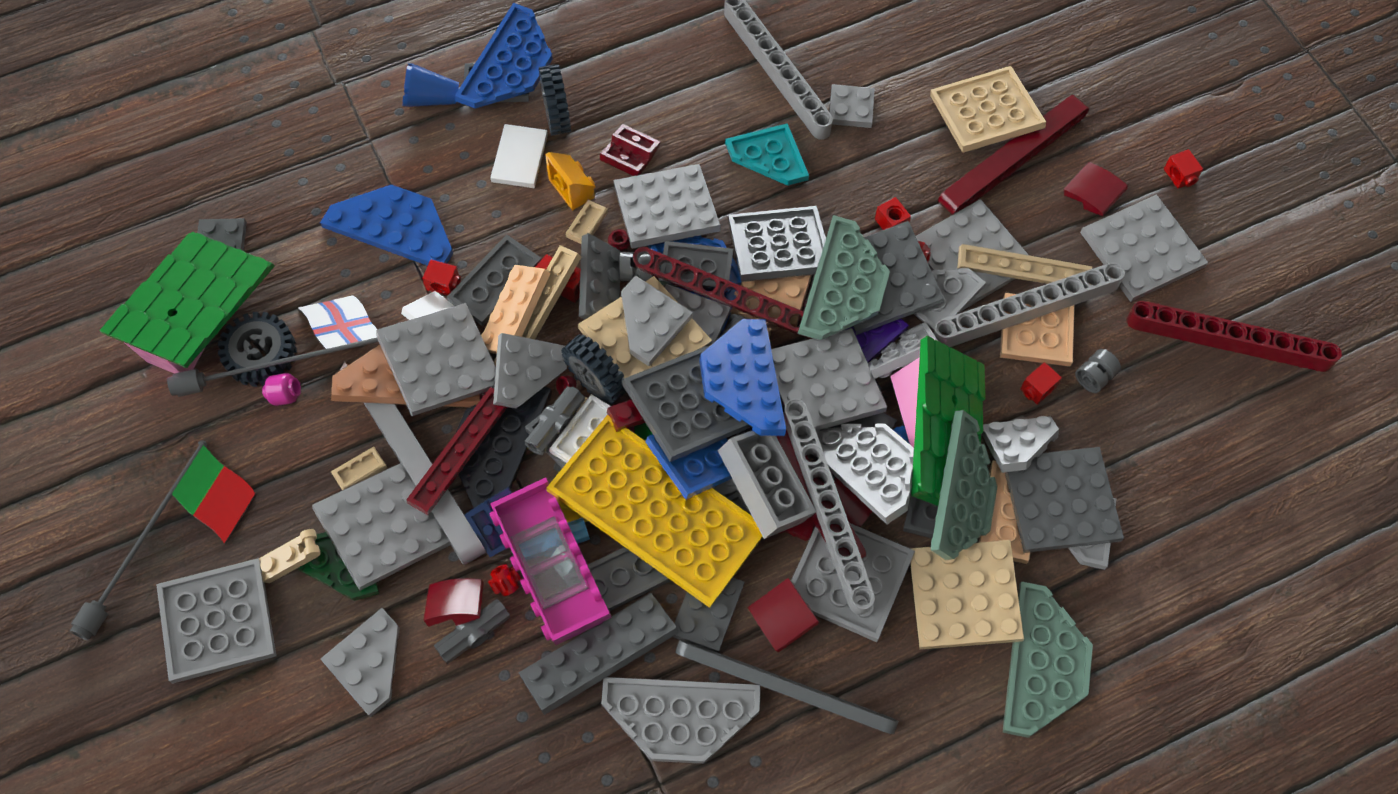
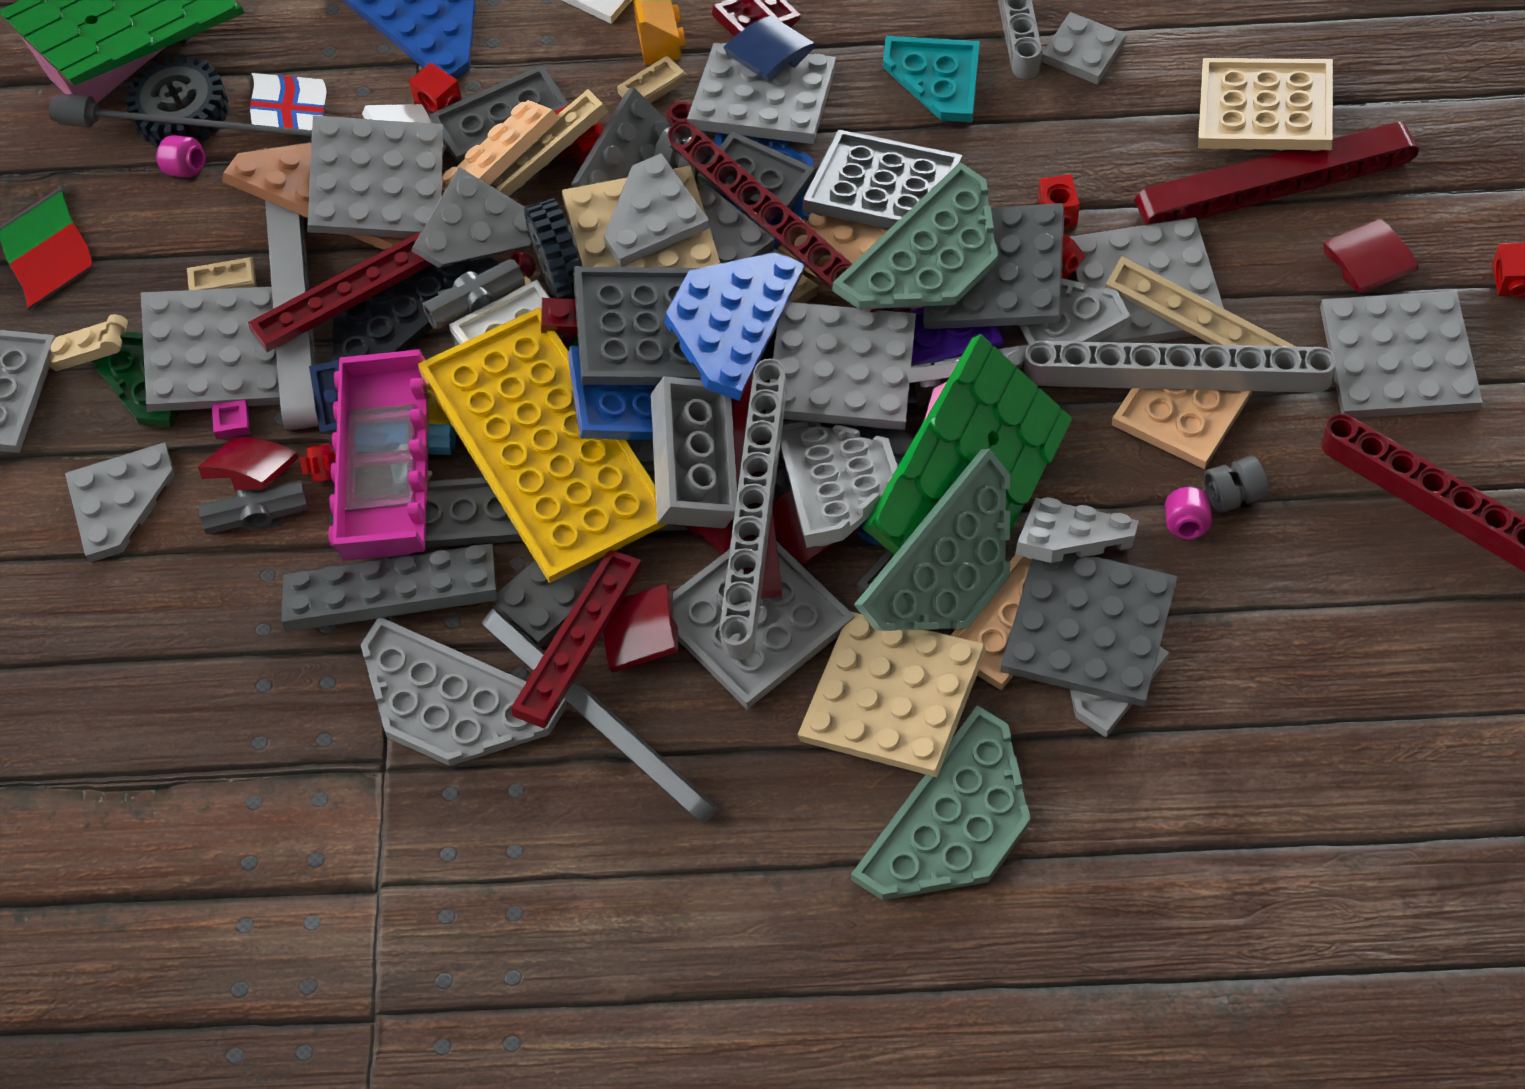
camera: 30 degrees right, 5 degrees down
(421, 572) = (230, 419): none -> dark pink plate
(657, 173) = (768, 47): none -> dark blue slope
(752, 642) = (576, 639): none -> dark red plate
(1040, 383) = (1146, 474): red brick -> none
(1079, 400) = (1188, 513): none -> dark pink head

